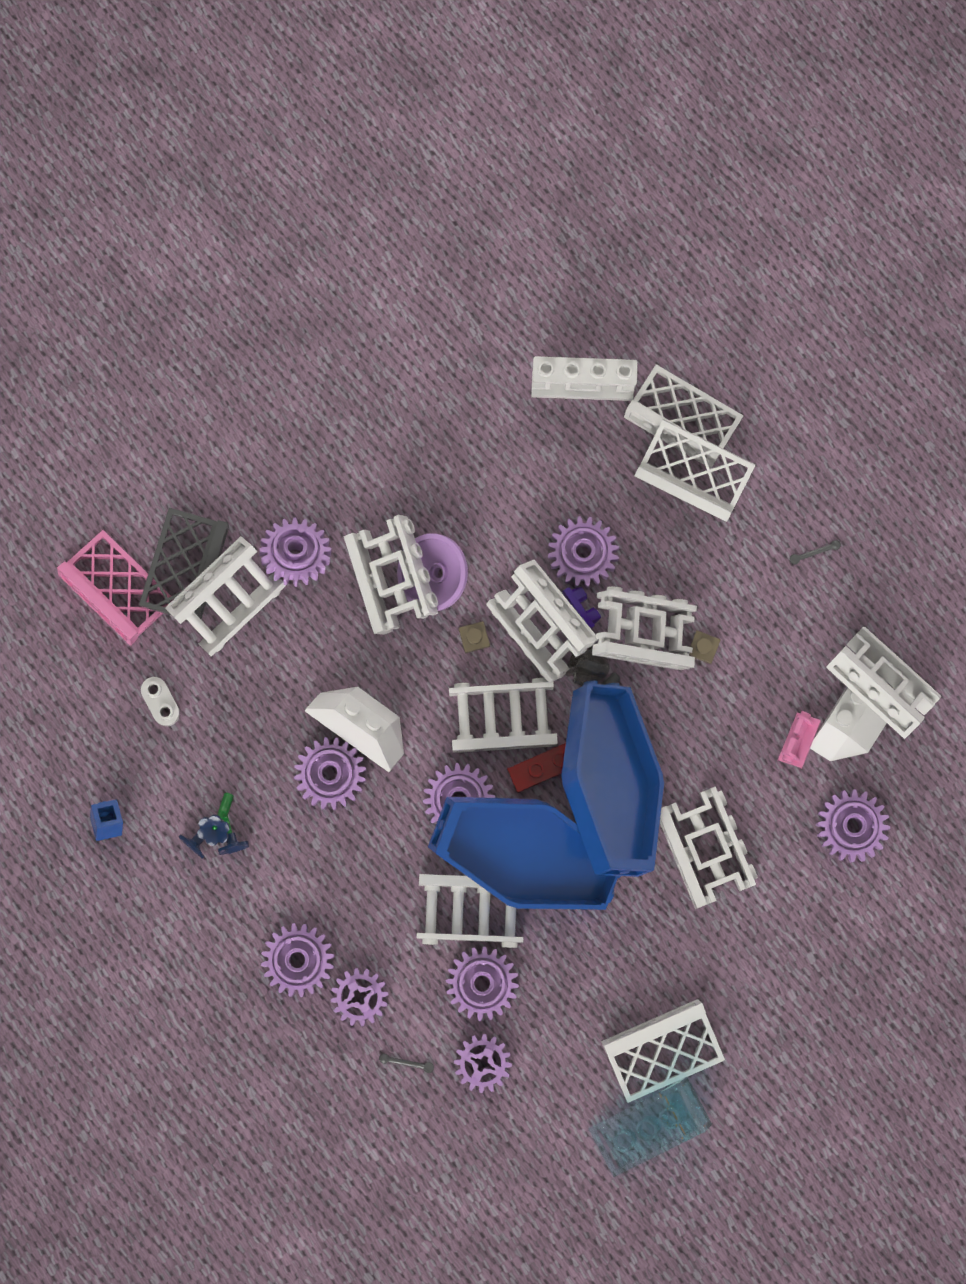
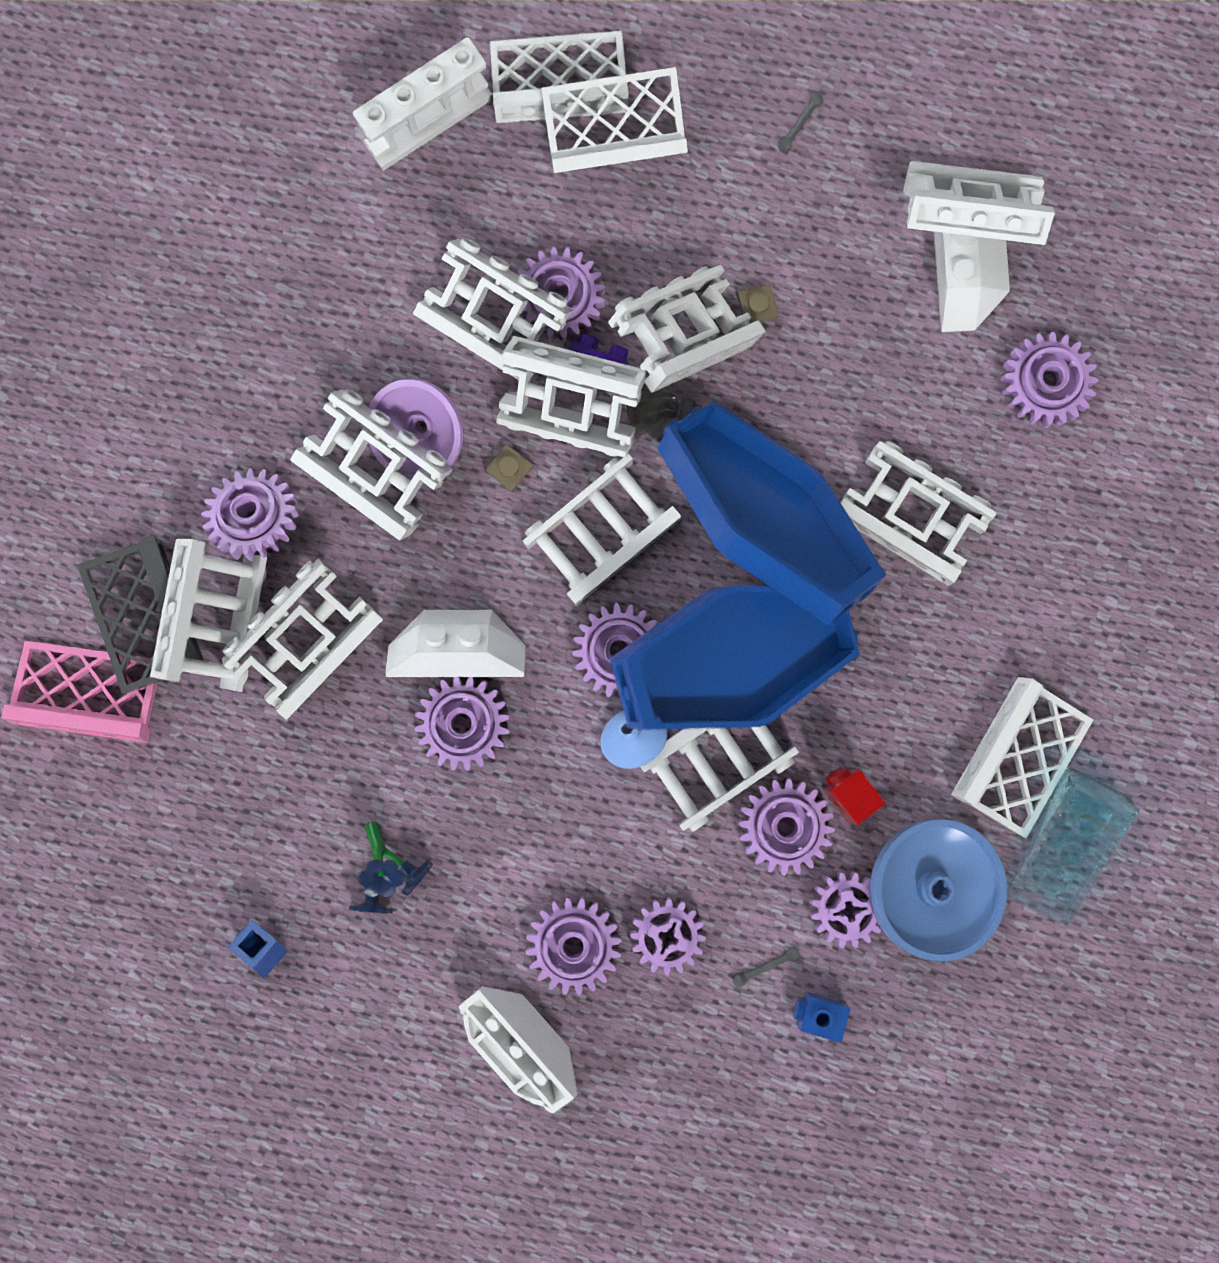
camera: 35 degrees left, 5 degrees up
(159, 701) = (222, 778): white plate -> none
(219, 996) = (520, 1047): none -> white wedge
(274, 670) = (323, 657): none -> white fence
(417, 1117) = (821, 1016): none -> blue brick
(423, 862) = (630, 749): none -> light blue dish
(514, 538) = (473, 330): none -> white fence
(536, 991) = (852, 794): none -> red brick
(537, 768) = (679, 555): red plate -> none
(548, 1091) = (938, 889): none -> medium blue dish
(799, 739) = (928, 329): bright pink hinge -> none

